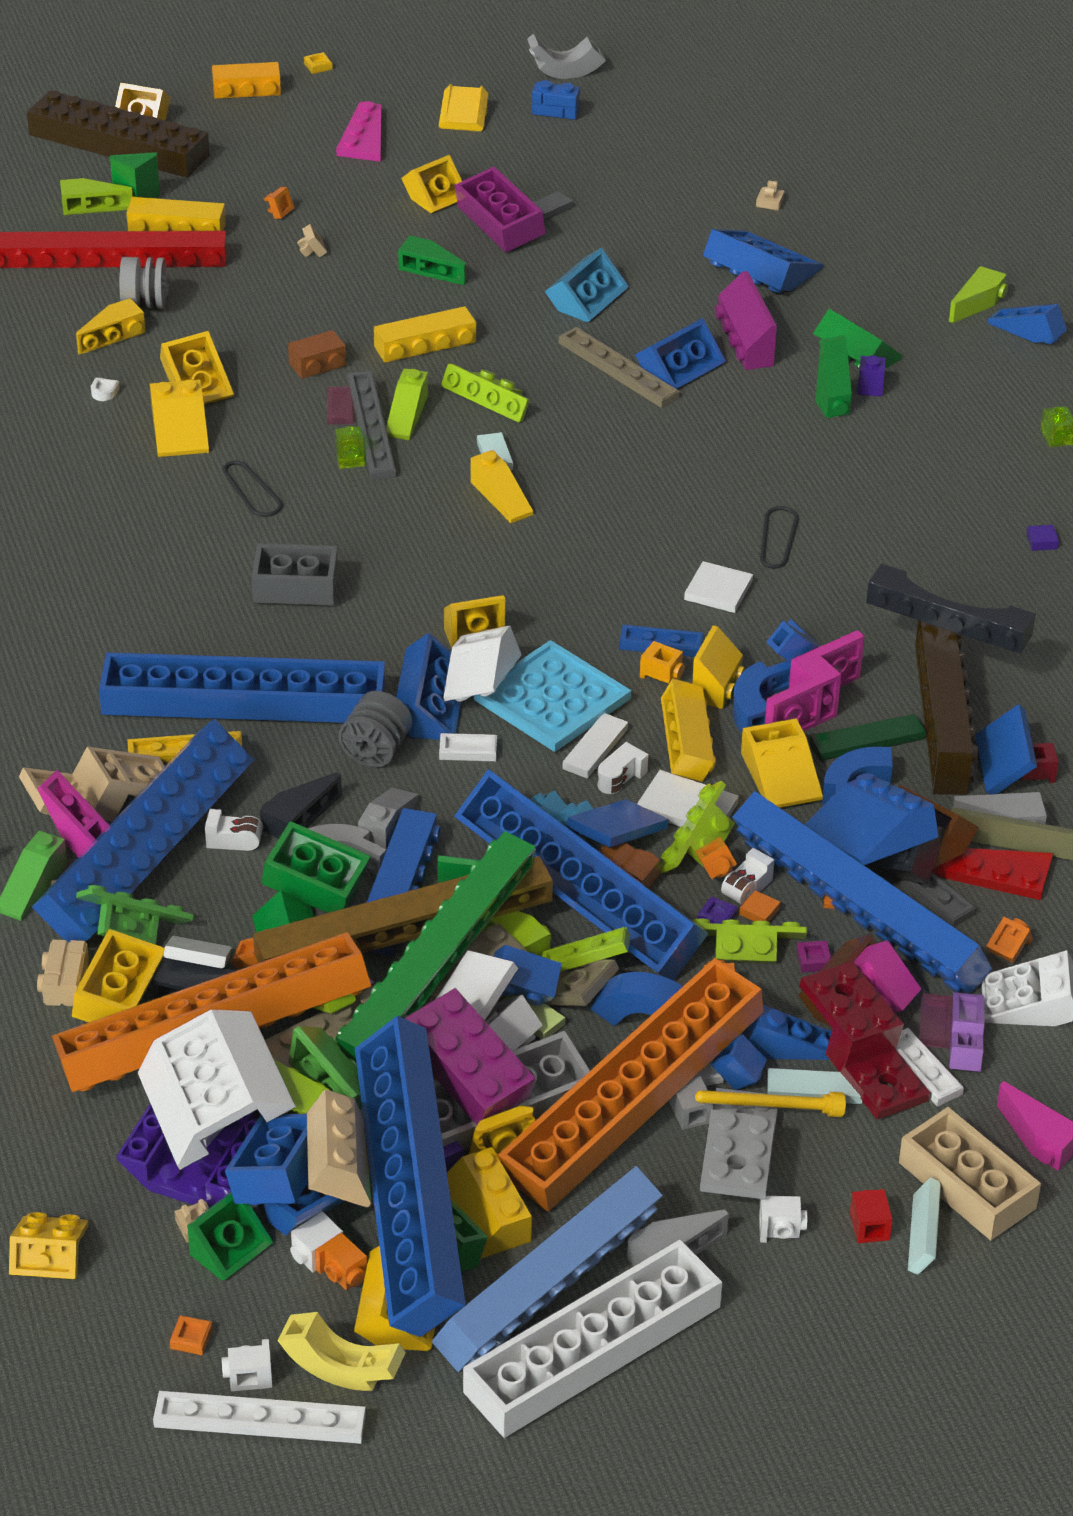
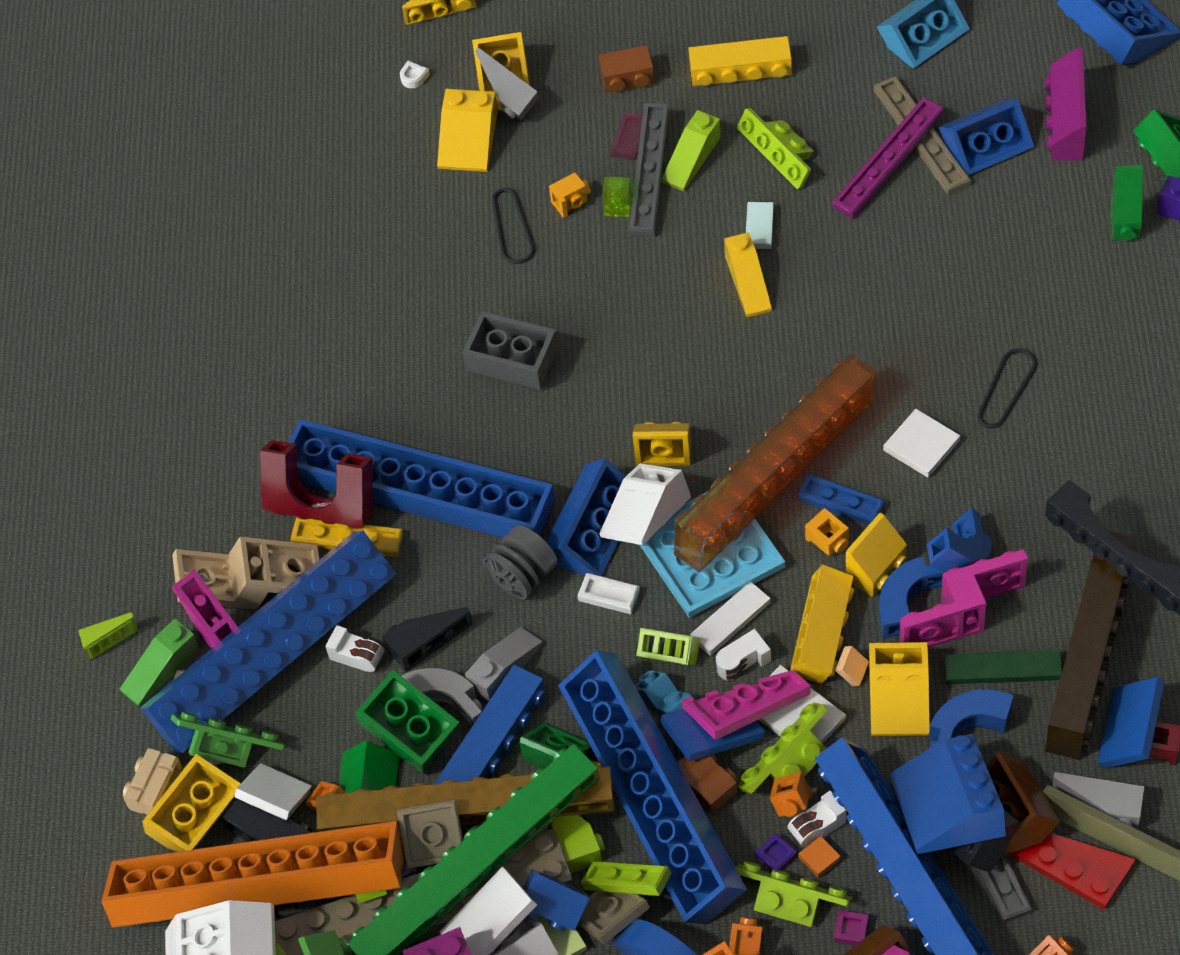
camera: 25 degrees right, 15 degrees up
(111, 717) = (285, 494): none -> dark red arch
(217, 382) = (512, 92): none -> light grey slope
(300, 453) = (569, 193): none -> light orange brick
(381, 938) = (429, 831): none -> dark tan tile
(543, 764) = (685, 651): none -> lime slope
(592, 612) = (773, 462): none -> clear orange brick
(595, 385) = (888, 157): none -> magenta tile
(643, 797) = (734, 709): none -> dark pink wing
(728, 757) = (852, 666): none -> light nougat tile

